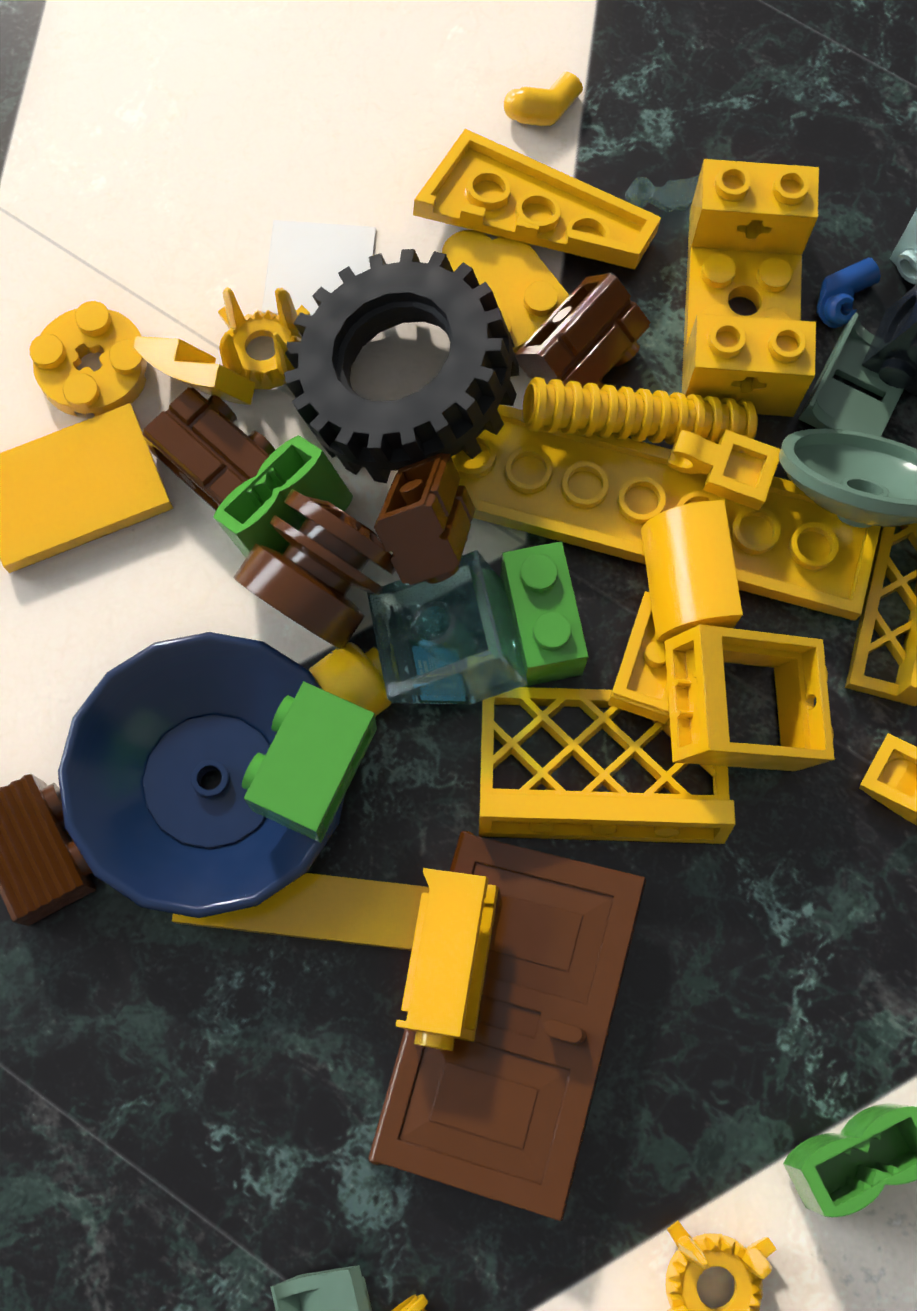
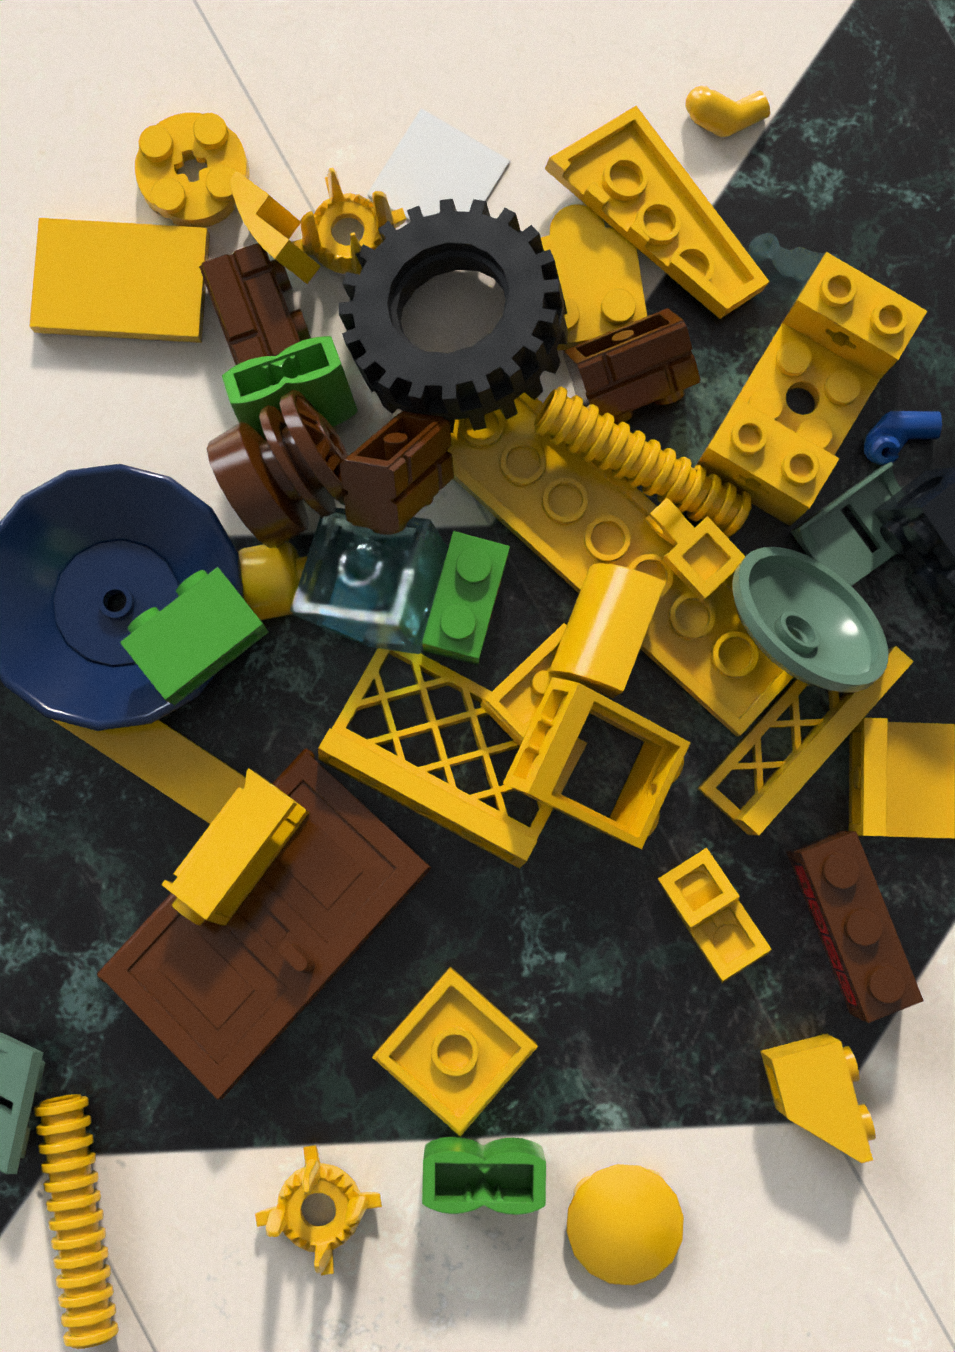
camera: 20 degrees right, 10 degrees up
(761, 1052) = (455, 1051): none -> yellow tile

